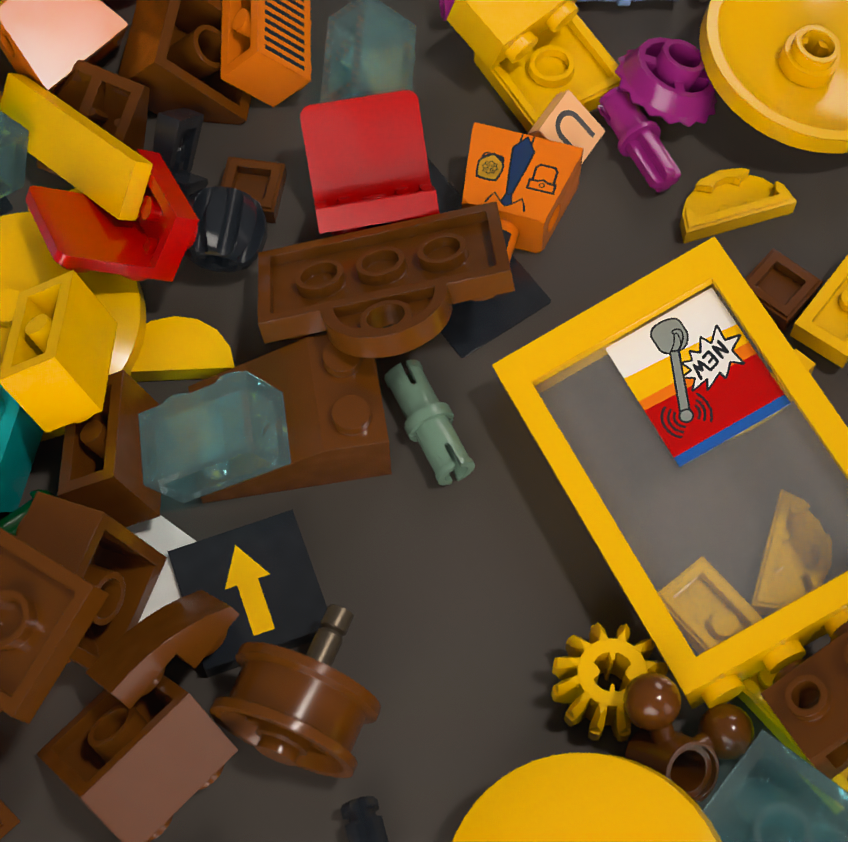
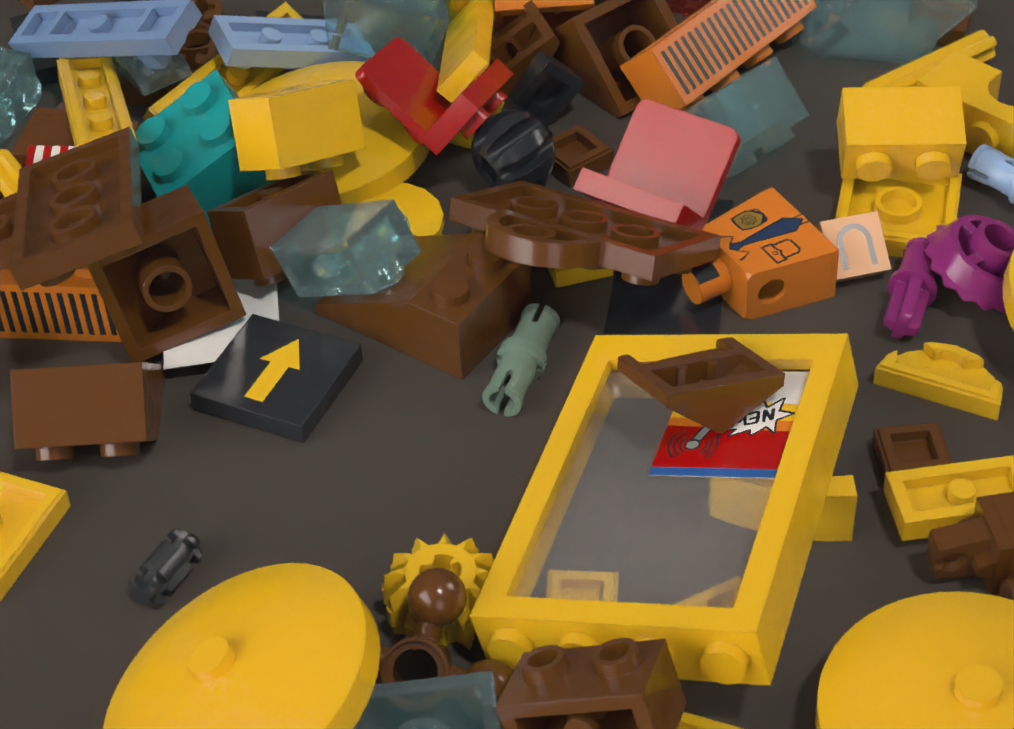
camera: 45 degrees right, 20 degrees down
(184, 628) = (199, 348): reddish brown slope -> none
(298, 704) = (206, 433): reddish brown wheel -> none
(654, 356) = (708, 385): none -> reddish brown slope

